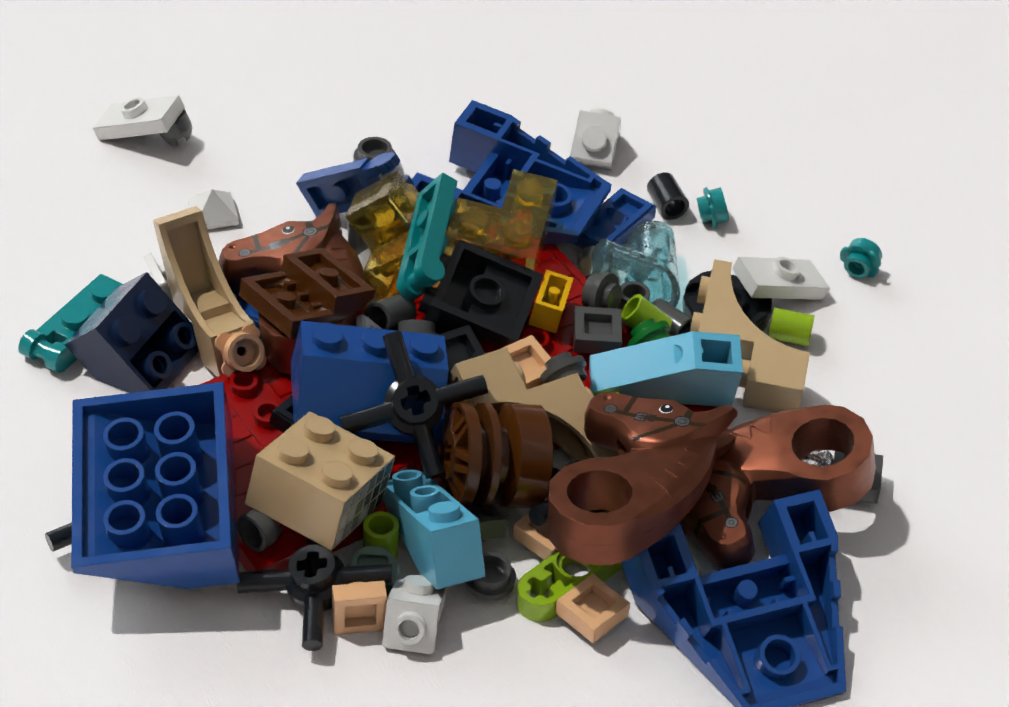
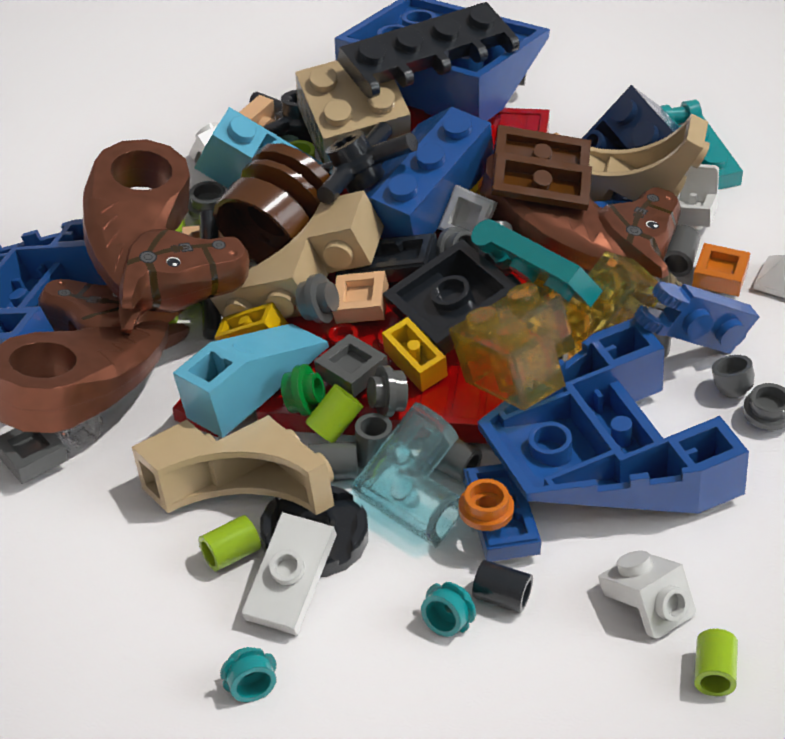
camera: 135 degrees right, 0 degrees up
(227, 421) = (424, 46): none -> black hinge
(245, 224) = (721, 269): none -> orange plate
(614, 94) = (716, 662): none -> lime hinge
(635, 205) = (486, 505): none -> orange plate

